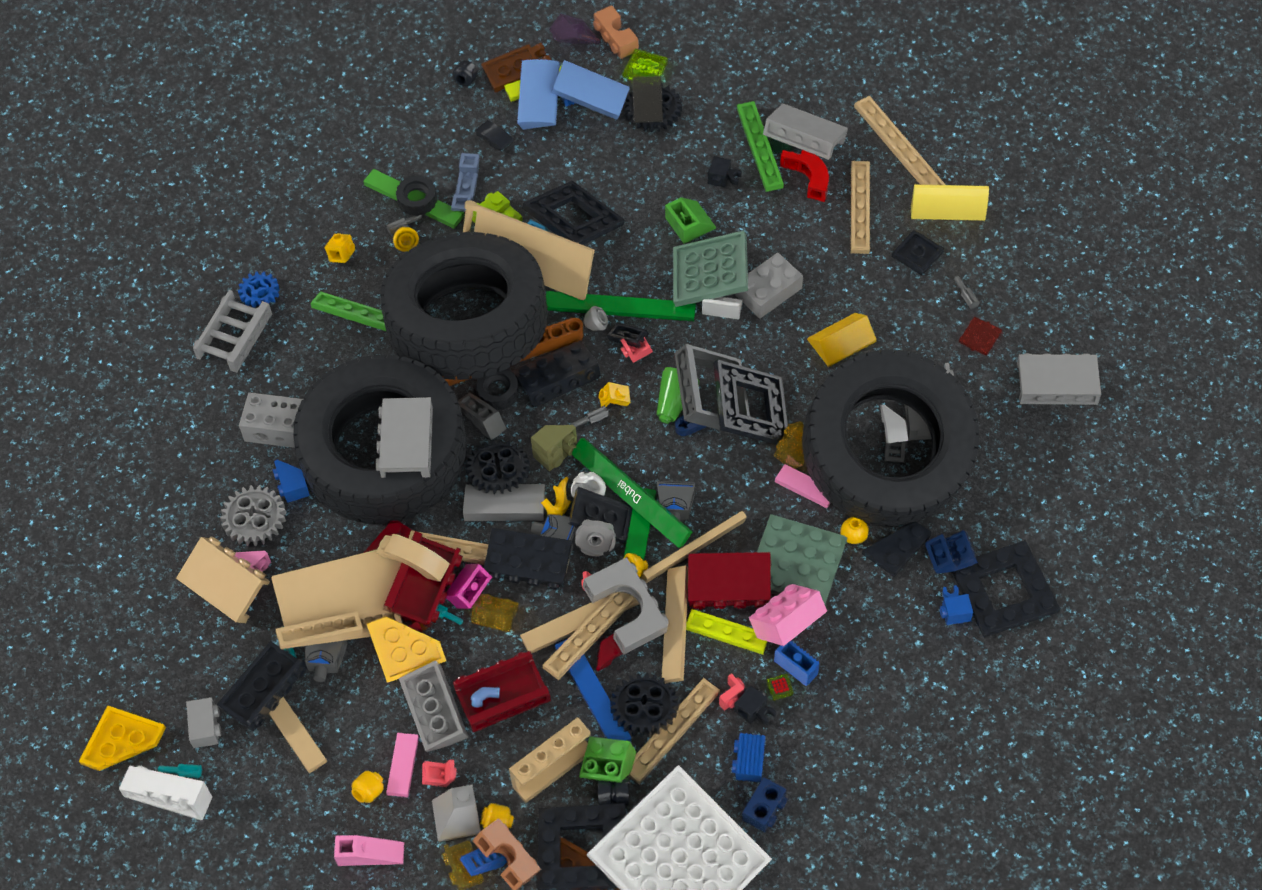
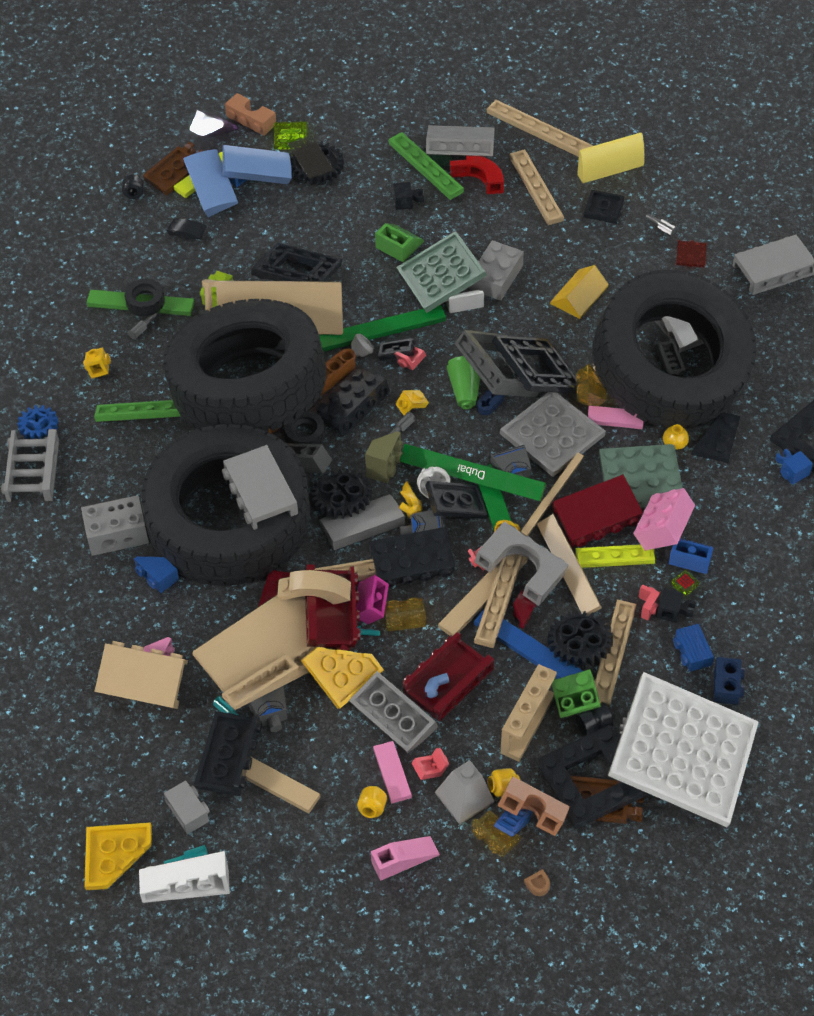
camera: 25 degrees left, 5 degrees down
(253, 515) = (137, 613): light grey gear -> none
(405, 239) = (153, 336): yellow brick -> none
(466, 181) = (182, 273): sand blue slope -> none
(590, 529) = (458, 511): light grey plate -> none
(733, 479) = (552, 432): none -> light grey plate
(951, 552) = (766, 425): dark blue slope -> none

